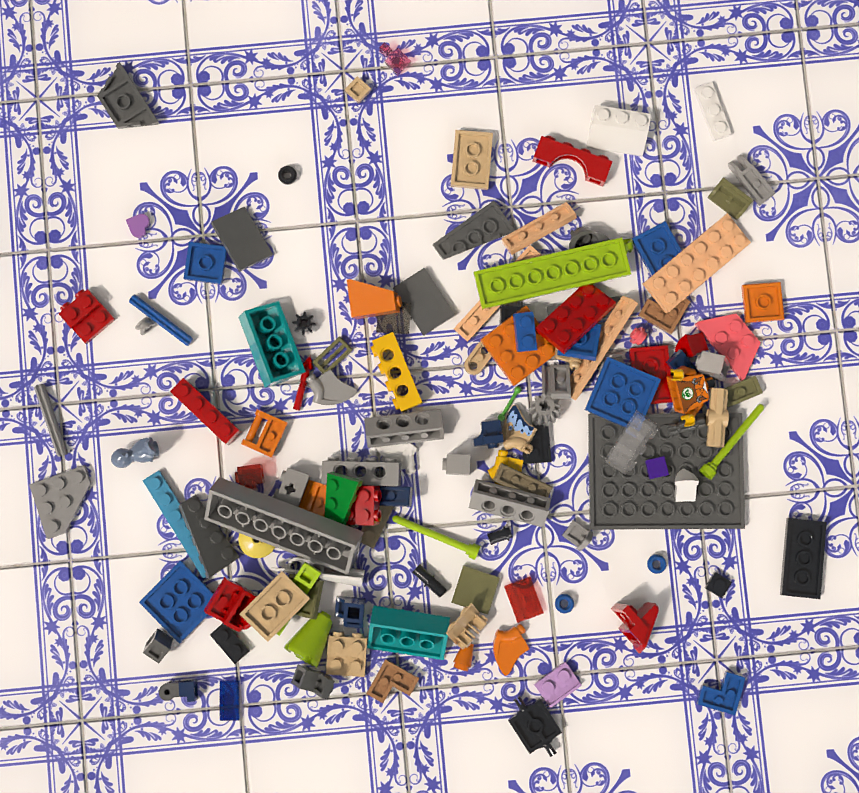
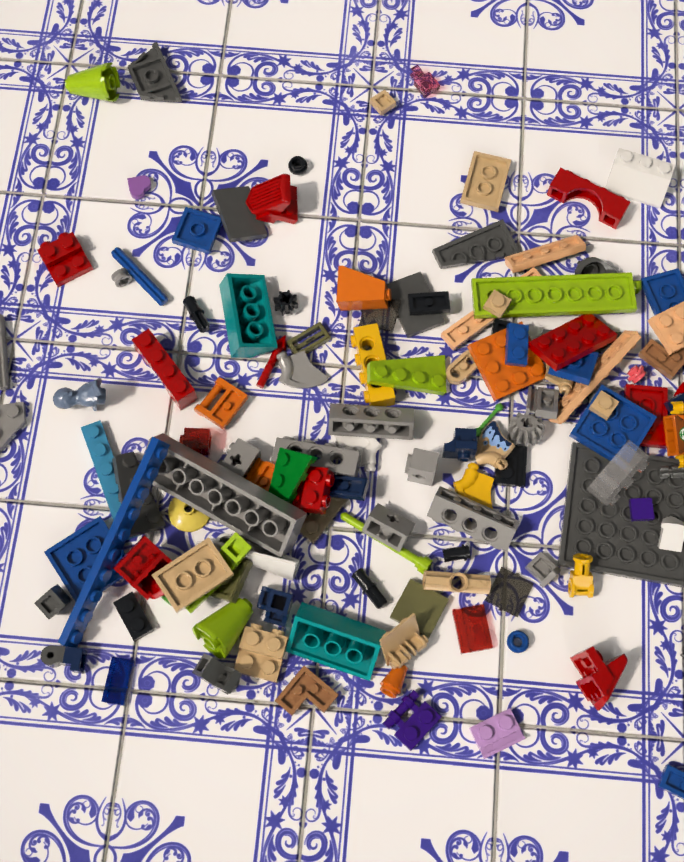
camera: 10 degrees right, 15 degrees down
(70, 122) = (95, 82): none -> lime cone
(200, 585) = (114, 543): none -> blue plate
(223, 350) = (196, 314): none -> black axle
(272, 220) = (274, 200): none -> red piece
(436, 525) = (388, 527): none -> light grey brick
(437, 301) = (429, 303): none -> black plate
(437, 375) = (411, 374): none -> lime wing
(490, 689) = (417, 725): none -> dark purple plate
(491, 564) = (469, 582): none -> tan piece
(501, 294) = (497, 304): none -> tan plate
(509, 647) = (446, 680): orange arm -> none
(517, 480) = (481, 493): dark tan tile -> none
(535, 726) = (463, 776): black plate -> none
(550, 560) = (509, 592): none -> clear smoke piece
(611, 378) = (603, 405): none -> tan plate
(611, 538) = (581, 578): none -> yellow connector
(662, 566) = (634, 614): blue plate -> none

